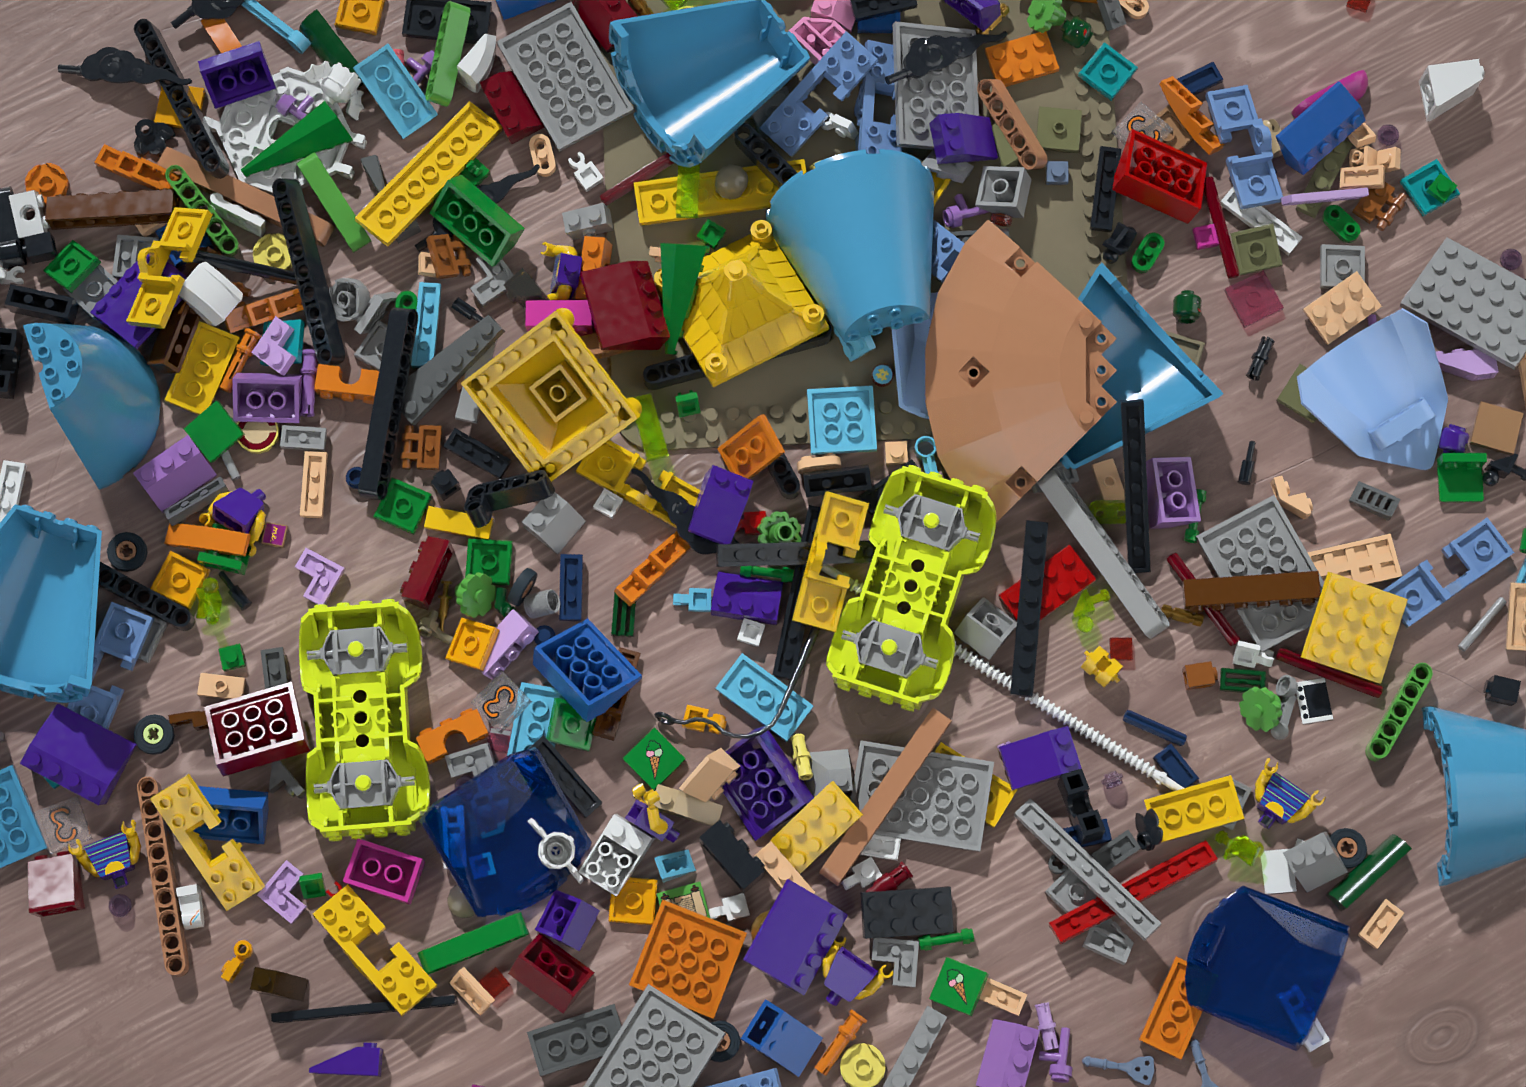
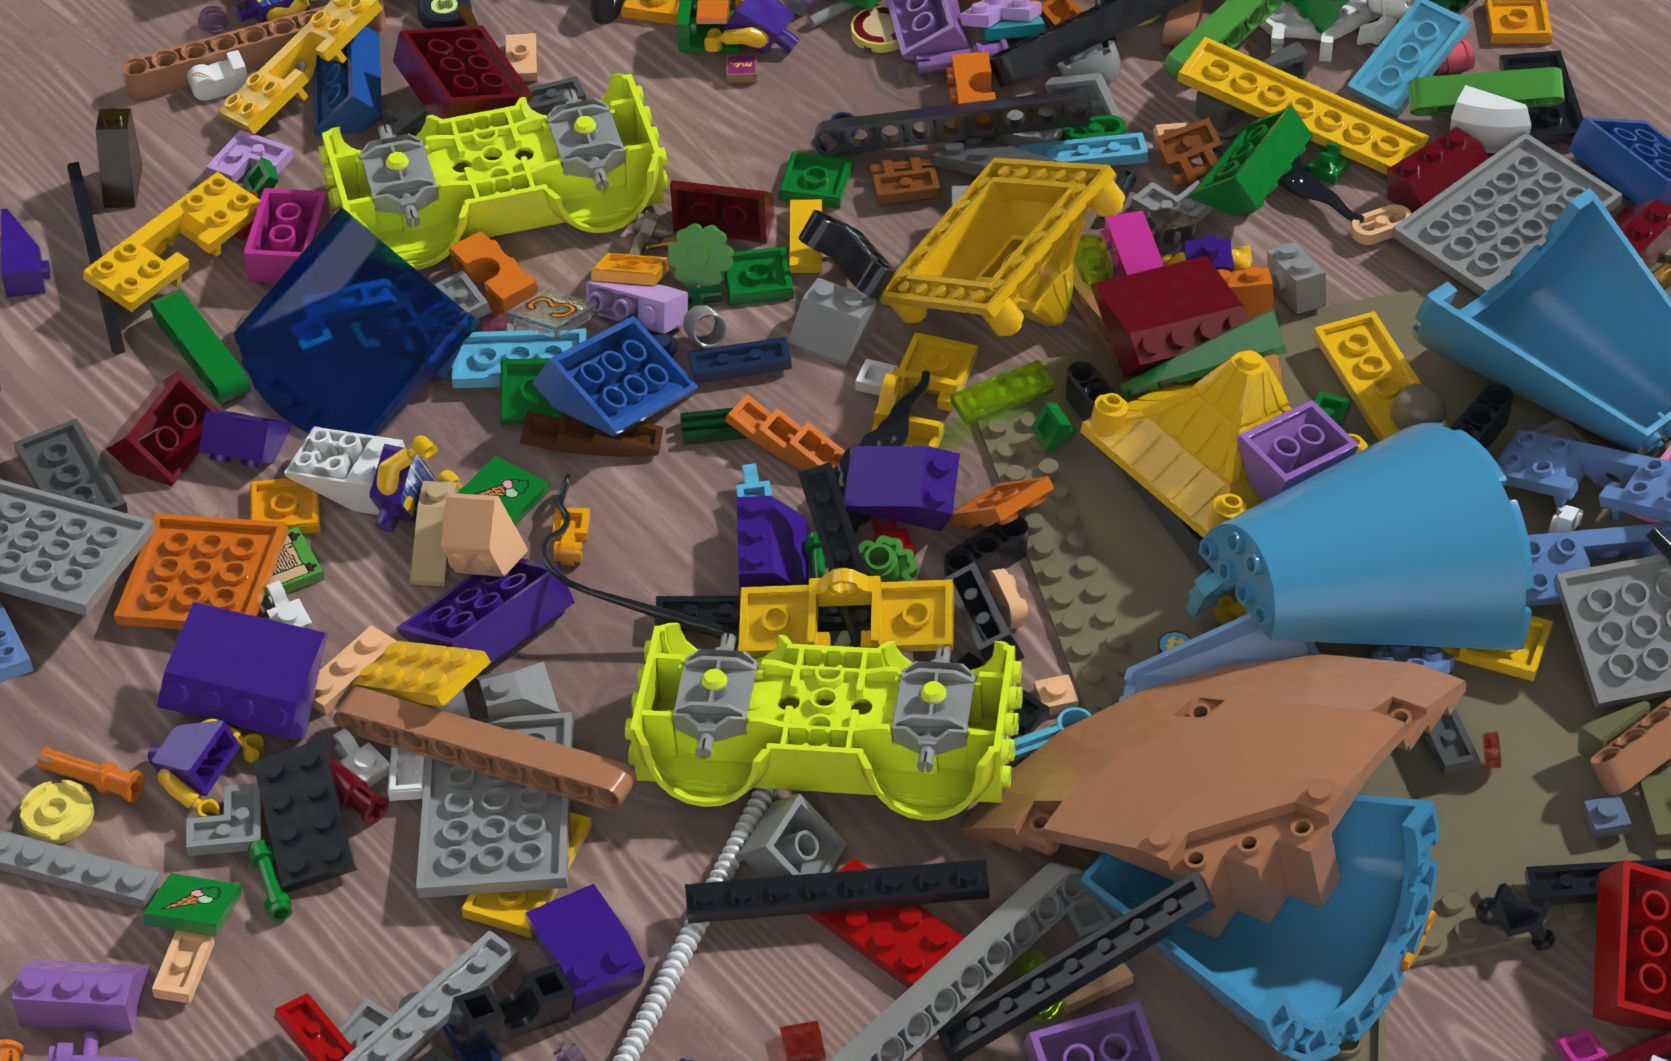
camera: 80 degrees right, 30 degrees down
(209, 601) = (631, 19): clear neon green piece -> none
(232, 657) = (563, 60): green plate -> none
(233, 967) = (164, 130): light orange plate -> none
(235, 592) = (651, 48): black axle -> none
(303, 438) = (883, 68): light grey plate -> none
(313, 484) = (820, 88): light nougat plate -> none
(324, 573) = (693, 121): lavender plate -> none
(445, 484) = (856, 199): black brick -> none
(471, 991) = (131, 357): light nougat plate -> none
(477, 453) = (915, 223): black plate -> none
(494, 983) = (143, 381): clear red tile -> none
(522, 587) = (737, 299): black bush -> none
(564, 843) = (339, 388): white helmet -> none
(569, 781) = (454, 388): black plate -> none
(587, 173) = (1372, 274): white plate -> none
(642, 175) = (1395, 326): dark red axle -> none
(674, 865) = (340, 531): medium azure slope -> none
(688, 191) = (1388, 363): clear neon green plate -> none
(732, 855) = (360, 586): black brick -> none
(733, 1042) = (94, 643): black bush -> none
(751, 632) = (718, 565): white plate -> none
(761, 696) = (628, 571): medium azure plate -> none
(781, 263) = (1292, 449): none -> medium lavender slope
(781, 1038) = (91, 693): blue slope -> none
(801, 757) = (533, 650): light yellow pin -> none
(841, 420) = (1084, 608): medium azure plate -> none
(954, 214) = (1477, 687): medium lavender piece -> none
(955, 171) = (1553, 662): light grey wing -> none
(962, 138) = (1604, 659): dark purple slope -> none
(1004, 190) = (1540, 742): light grey slope -> none
(1046, 1026) = (139, 1034): lavender pin -> none
(1086, 607) = (859, 977): clear neon green piece -> none
(1102, 666) = (761, 1009): yellow wheel -> none
(1146, 253) = (1517, 968): green plate -> none
(1187, 307) = (1437, 1034): dark green head -> none

